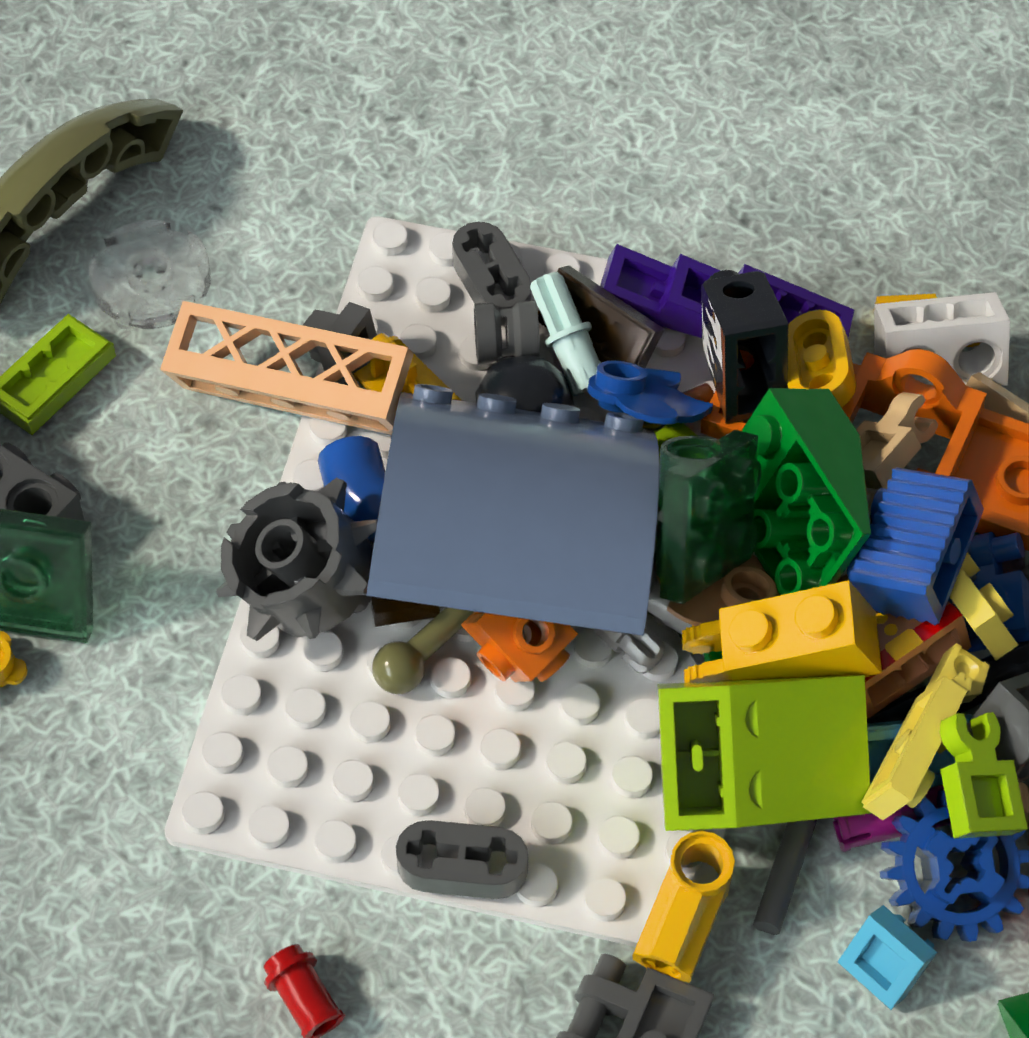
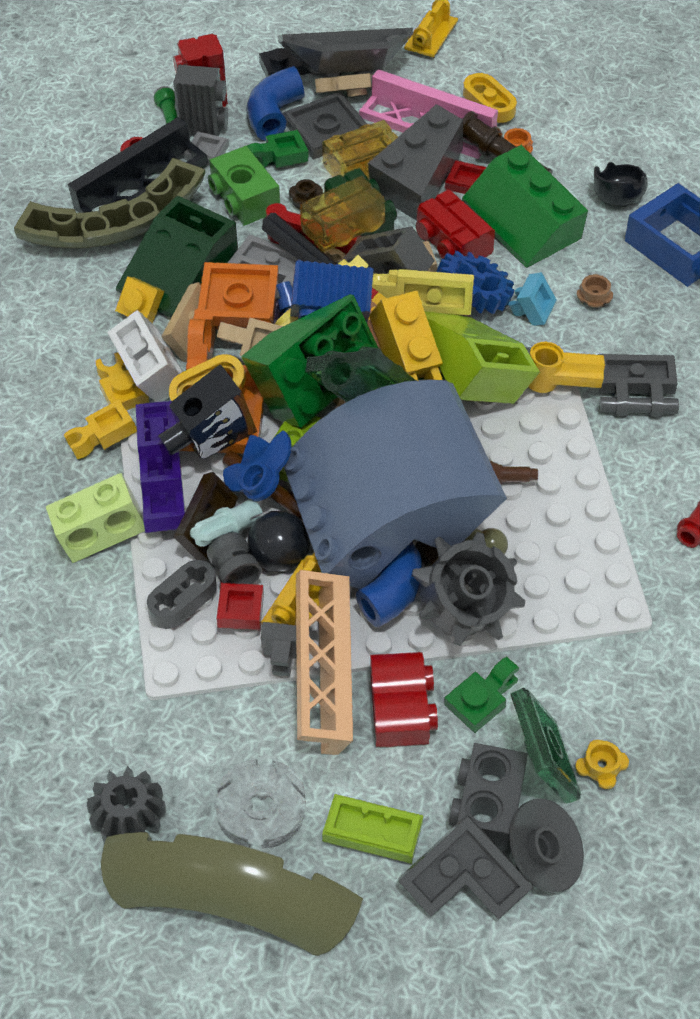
camera: 110 degrees left, 5 degrees down
(168, 564) = (481, 699): none -> green plate
(206, 460) = (401, 699): none -> red brick
(218, 144) = (138, 793): none -> dark grey gear
(434, 322) = (240, 606): none -> red plate
(462, 859) = (583, 475): dark grey beam -> none
(521, 716) = (514, 474): none -> reddish brown piece
(658, 202) = (96, 518): none -> yellowish green brick
(835, 274) = (104, 428): none -> yellow plate
(978, 789) = (449, 256): lime plate -> none

